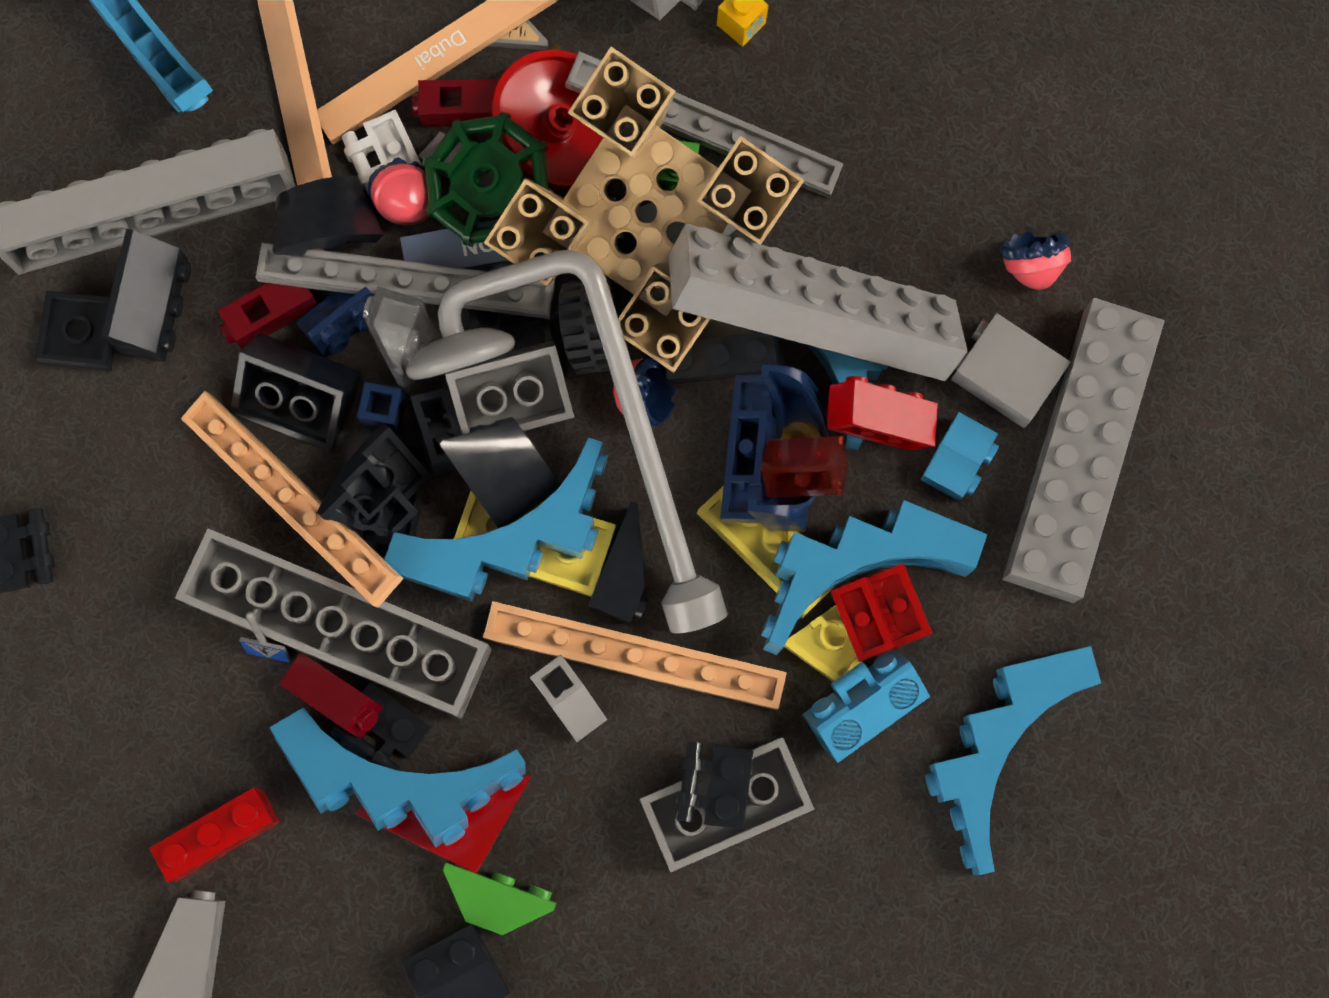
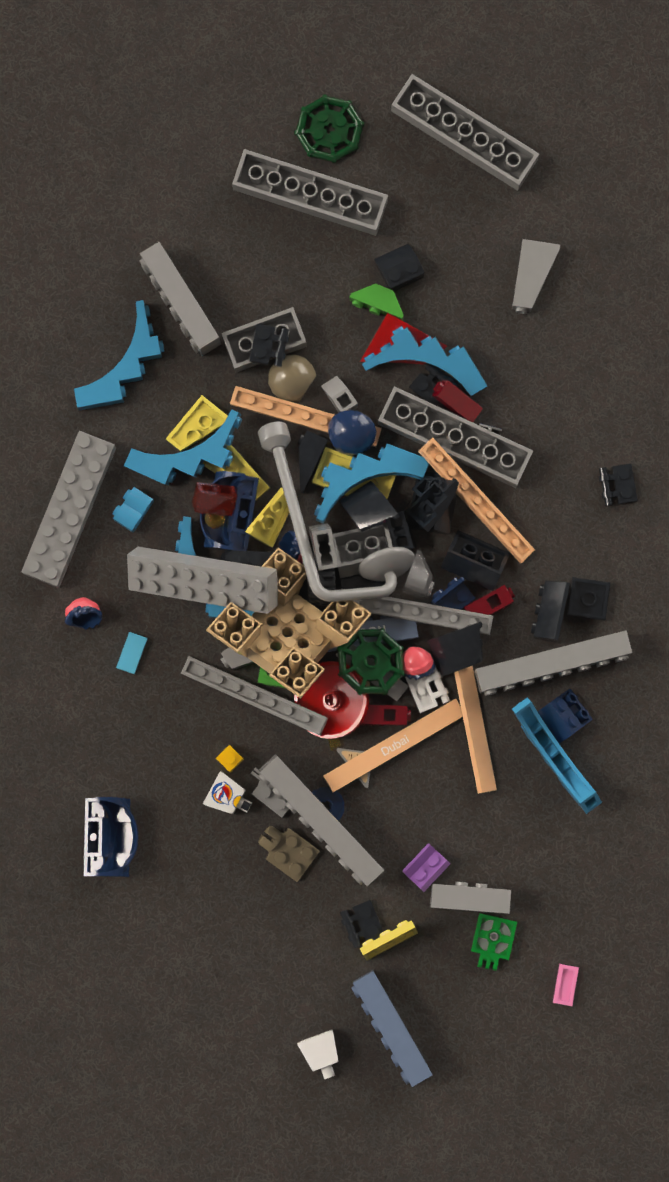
camera: 170 degrees left, 5 degrees up
(127, 115) = (564, 715): none -> dark blue slope
(214, 835) = (514, 338): red brick -> none
(382, 405) = (429, 546): dark blue brick -> none
(540, 618) = (351, 432): none -> dark blue cylinder
(585, 380) = (323, 546): none -> light grey slope
(660, 729) = (291, 379): none -> dark tan cylinder
(694, 442) = (270, 520): none -> light yellow wing
(865, 704) = (191, 385): dark azure piece -> none
(881, 612) = (180, 430): red slope -> none
(882, 414) = (172, 528): brick -> none
(906, 883) = (179, 297): none -> light grey brick
(936, 196) = (132, 653): none -> medium azure tile
(1009, 370) = (102, 553): light grey brick -> none

